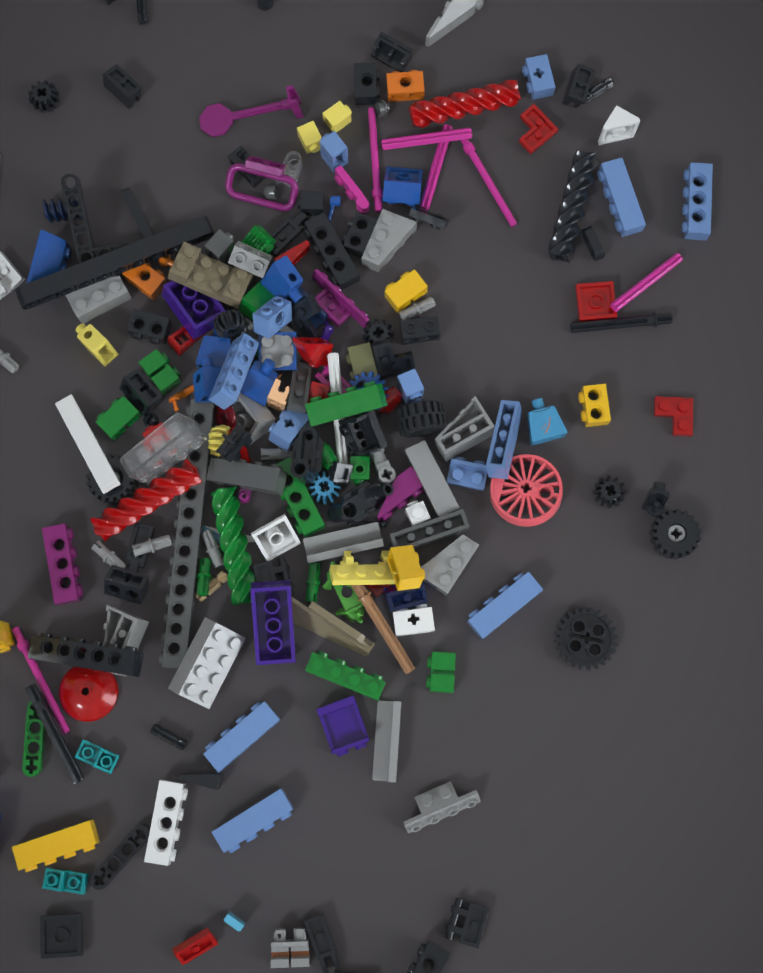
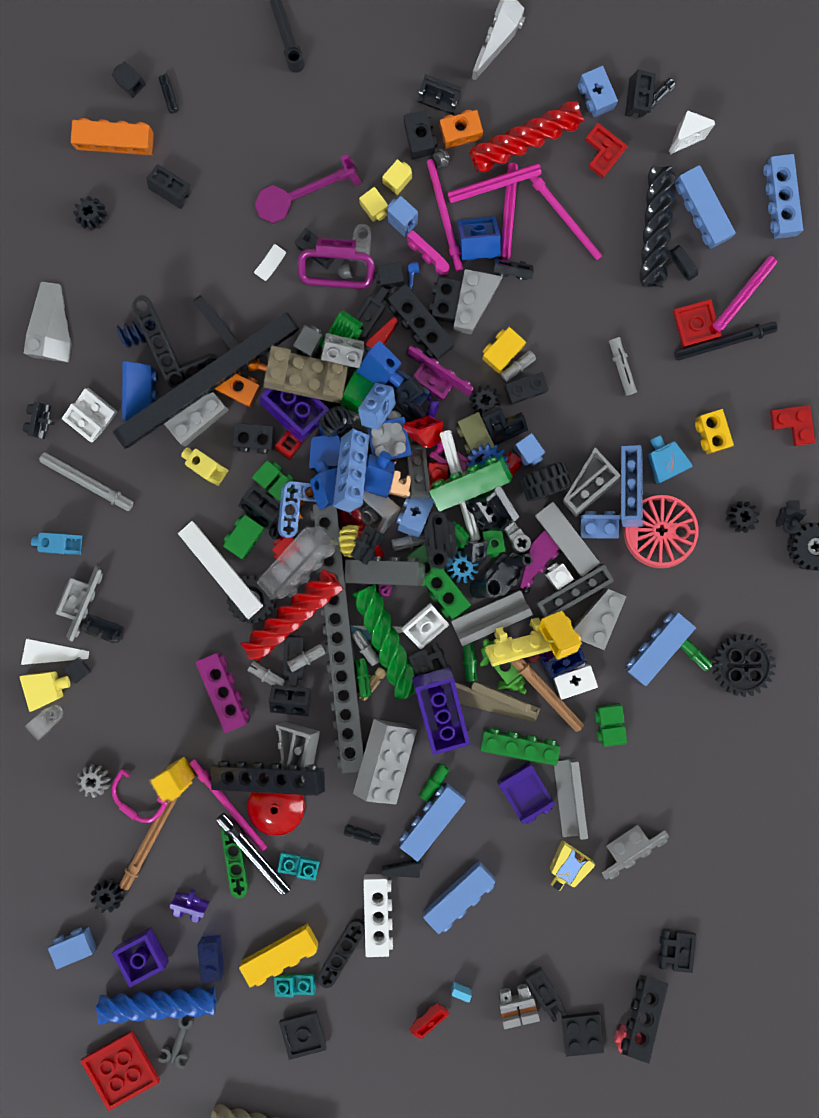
camera: 15 degrees left, 10 degrees up
(80, 34) = (112, 137): none -> orange brick
(180, 387) = (298, 495): none -> medium blue beam
(202, 171) = (270, 262): none -> white sticker
(252, 696) = (434, 782): none -> green pin
(372, 810) = (569, 866): none -> torso
(517, 327) = (620, 359): none -> light grey pin
(539, 618) = (696, 655): none -> green axle

